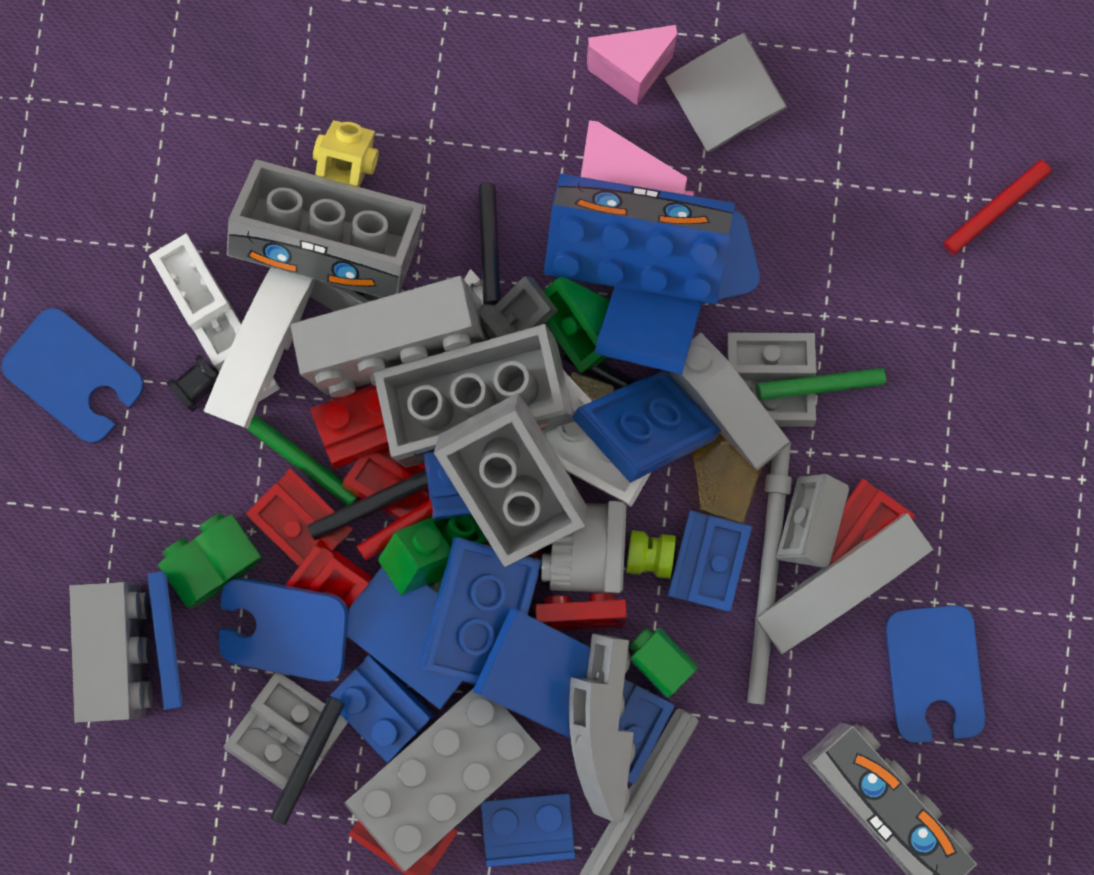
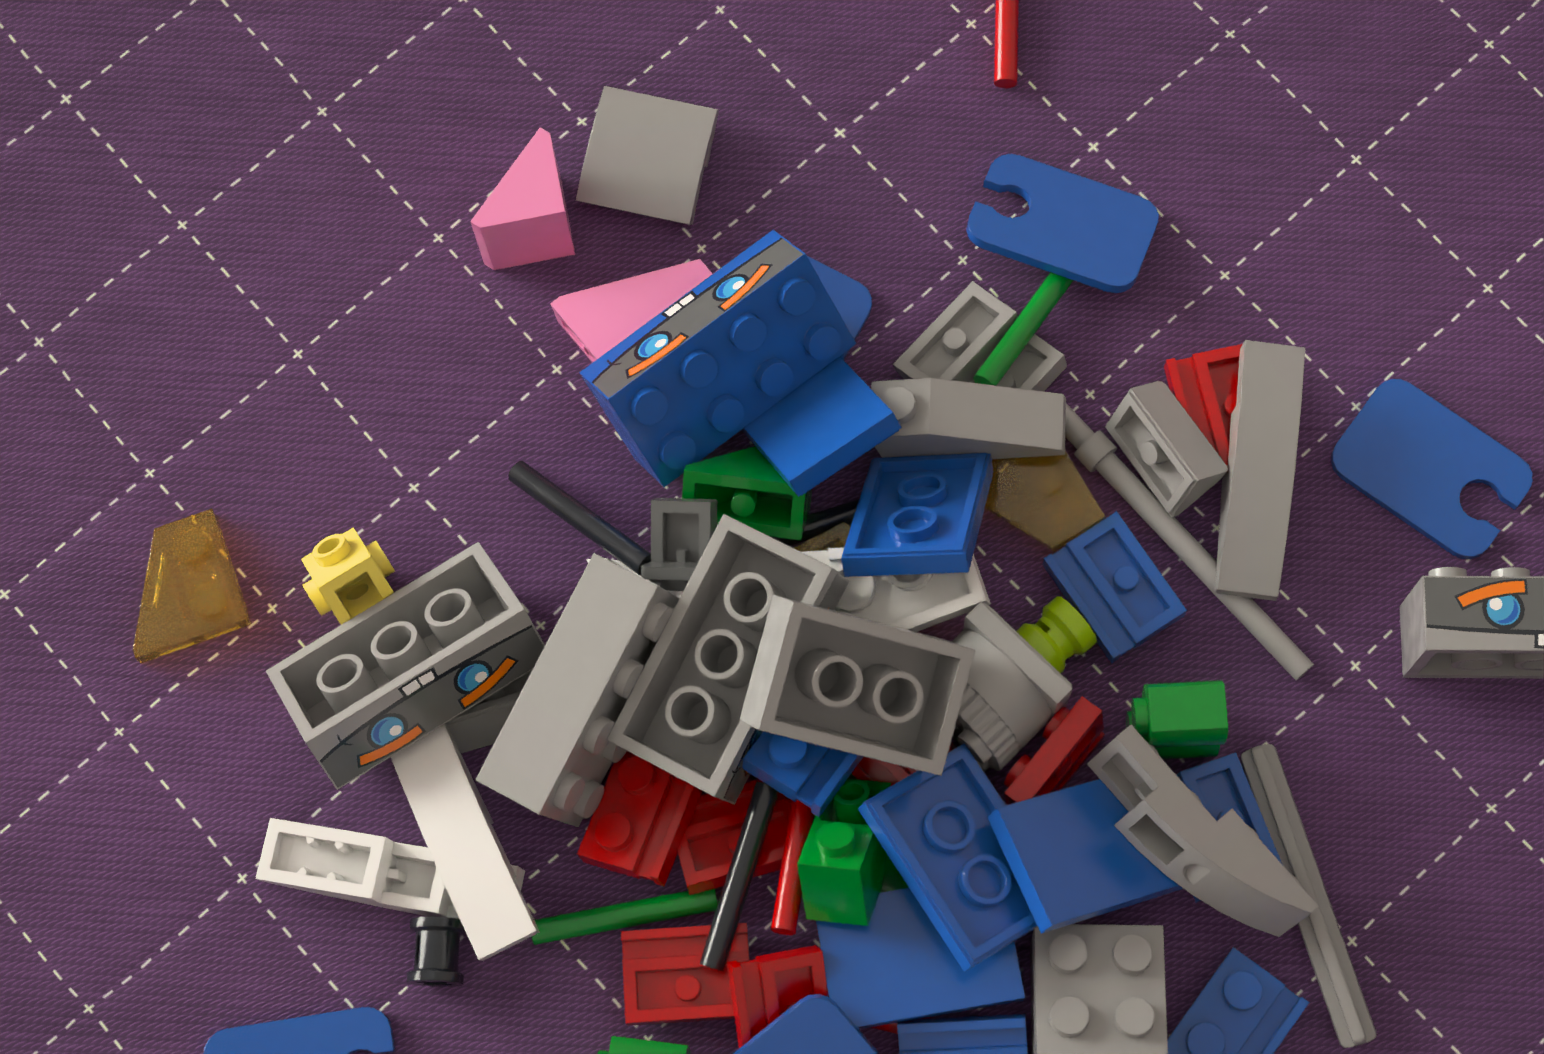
camera: 45 degrees left, 10 degrees down
(269, 74) = (188, 588): none -> clear yellow wing
(896, 361) = (1070, 226): none -> blue piece

